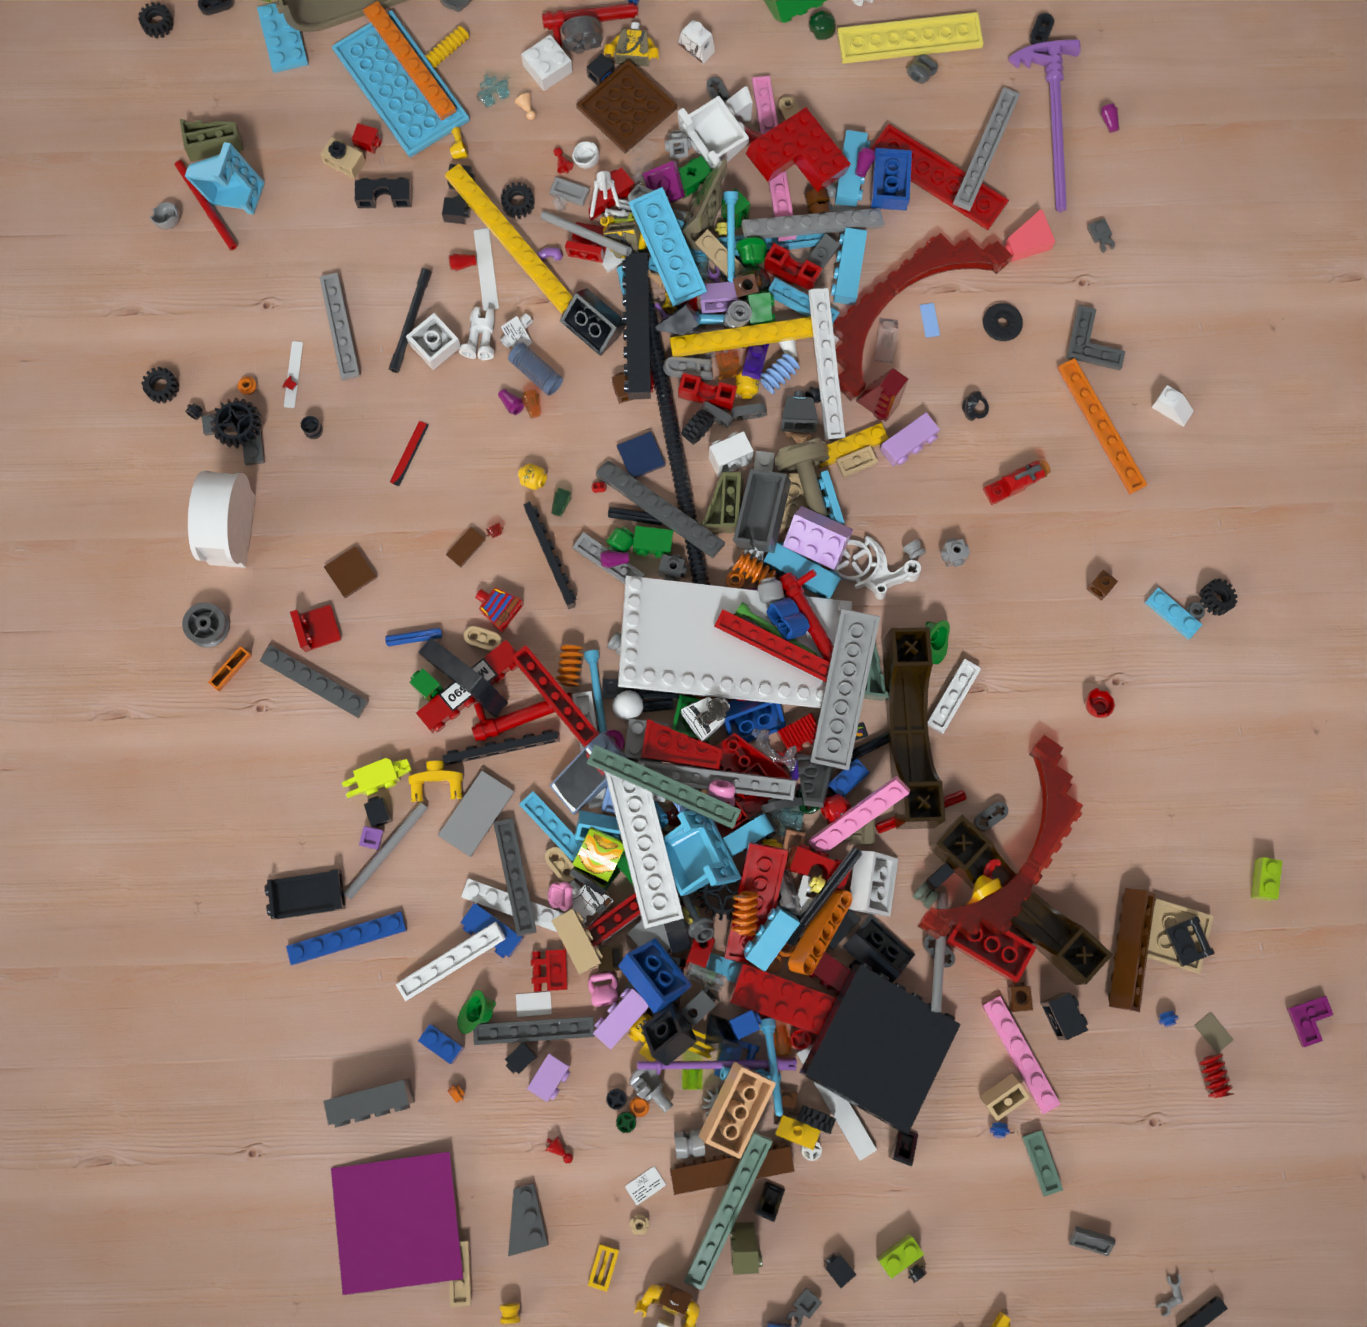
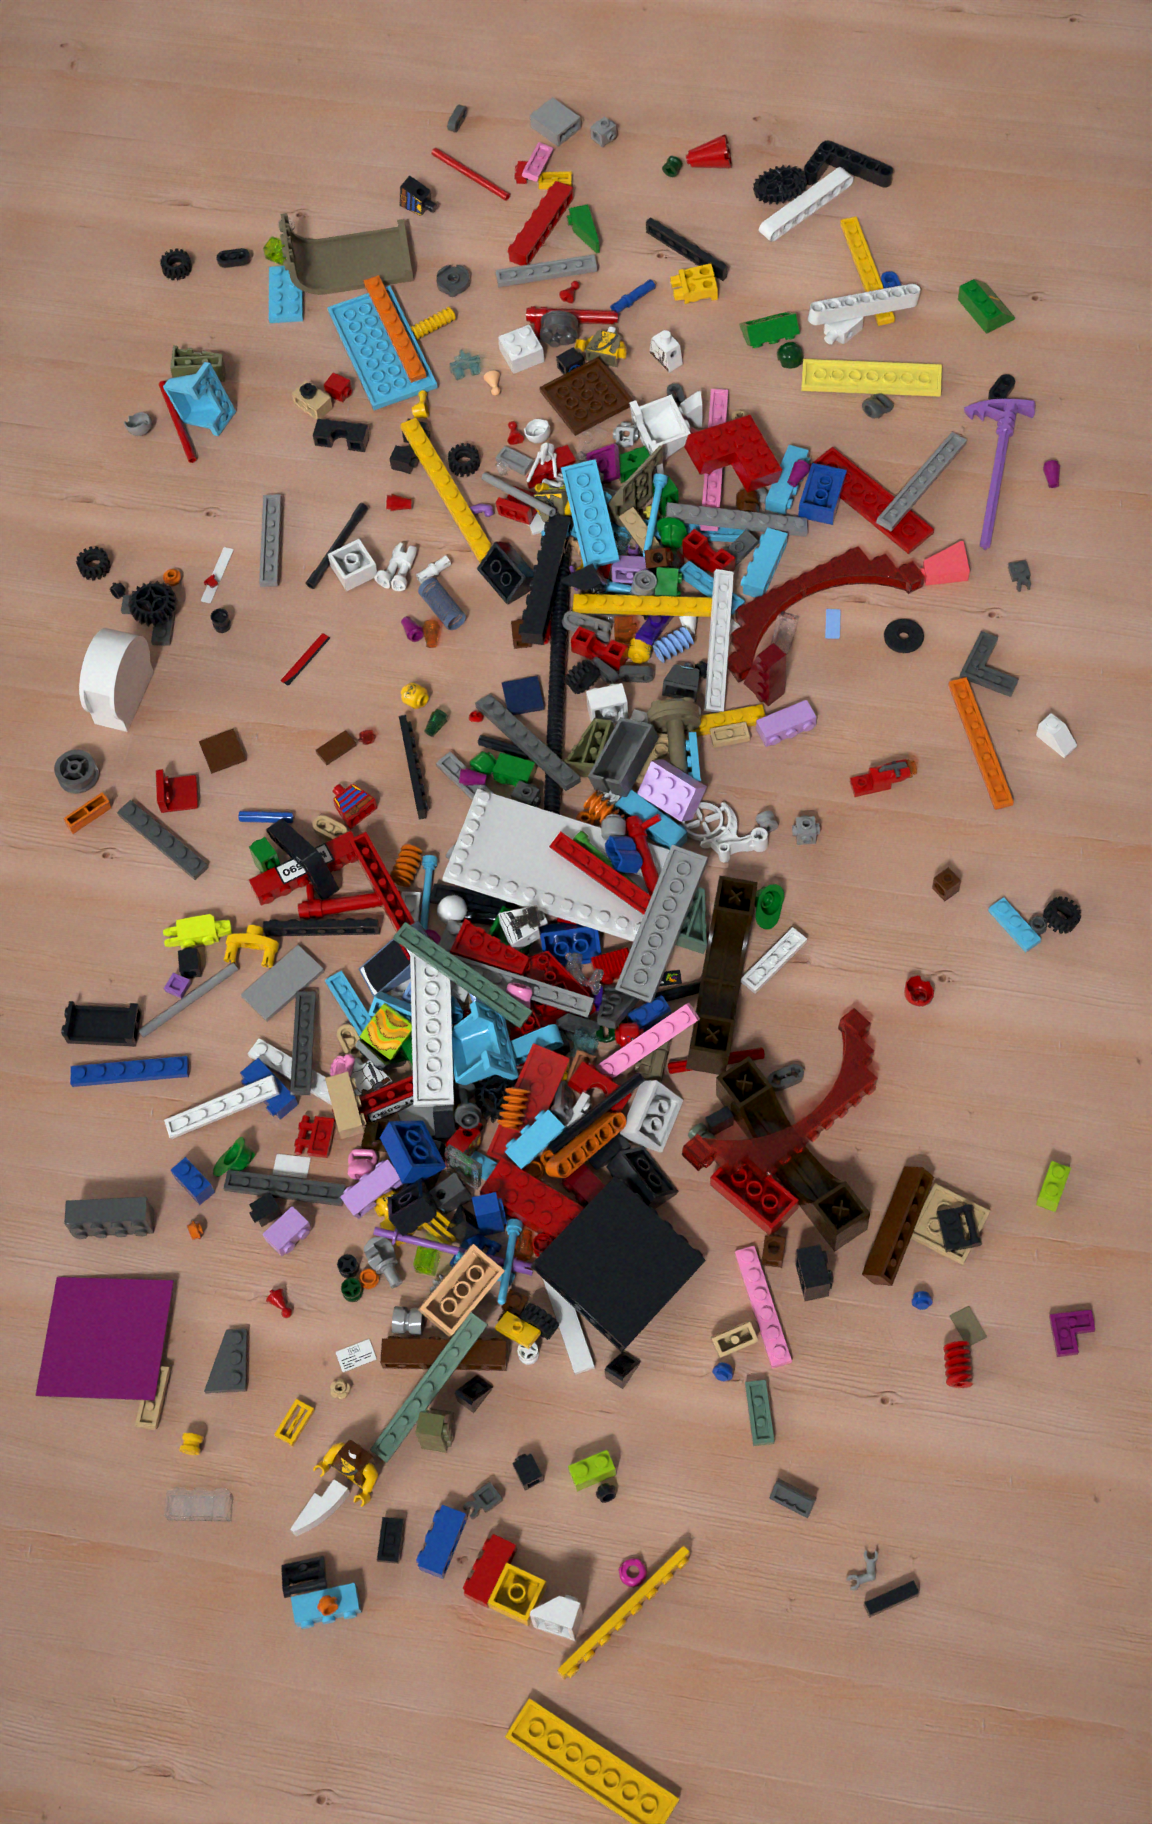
camera: 20 degrees right, 15 degrees down
(486, 269) = (419, 513): white sticker -> none
(515, 332) = (431, 569): white sticker -> none
(816, 883) = (593, 1100): light yellow plate -> none
(931, 951) = (706, 1190): dark grey beam -> none
(939, 962) = (696, 1202): light grey piece -> none
(970, 403) = (852, 710): black piece -> none
(986, 884) = (761, 1128): yellow piece -> none

